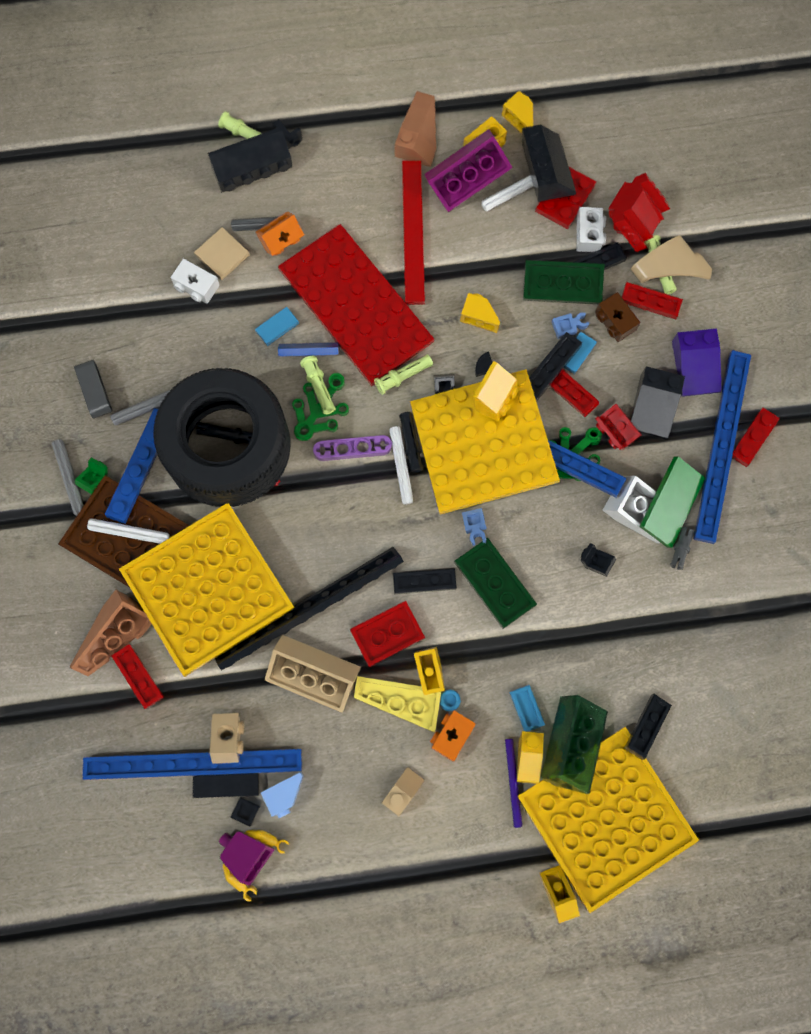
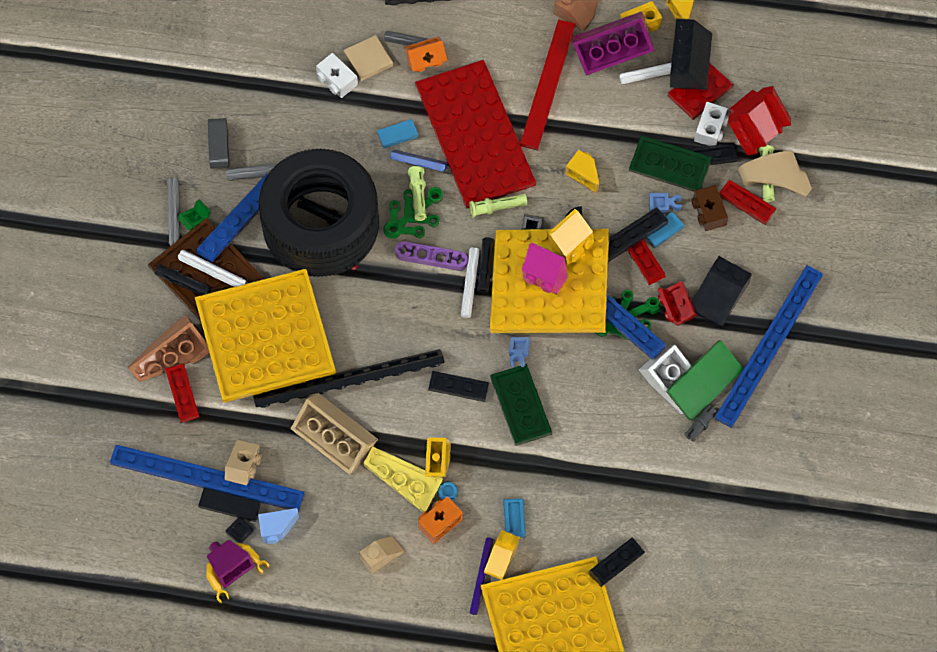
camera: 20 degrees right, 10 degrees down
(95, 552) = (176, 277): none -> black pin
(387, 633) = (410, 420): red plate -> none
(478, 434) = (544, 269): none -> dark pink slope
(574, 744) = (545, 555): clear green slope -> none
(597, 560) = (618, 410): black bracket -> none
(698, 360) = (771, 267): dark purple slope -> none
(754, 437) = (803, 347): red plate -> none

